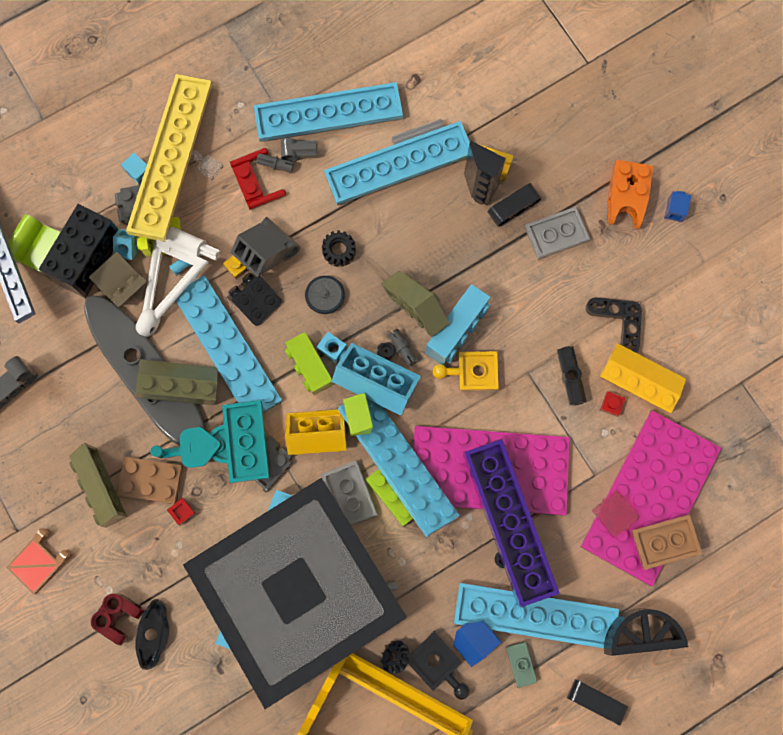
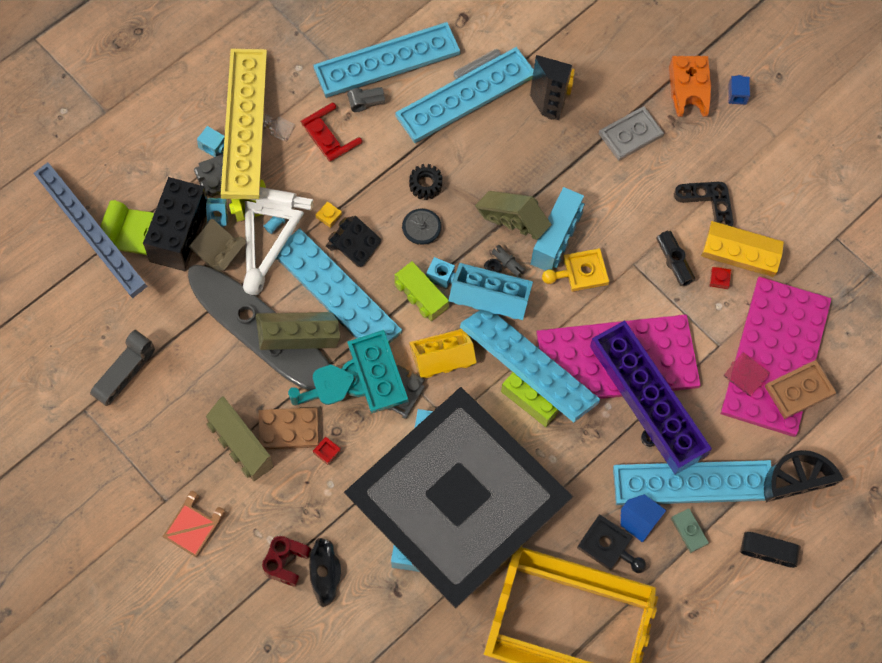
camera: 15 degrees left, 10 degrees down
(263, 247) = (354, 191): dark grey piece -> none
(275, 163) = (347, 114): dark grey axle -> none
(350, 492) = (492, 400): light grey tile -> none
(358, 415) = (482, 324): lime slope -> none
(402, 654) = (567, 552): black gear -> none
(514, 204) = (585, 114): black beam -> none

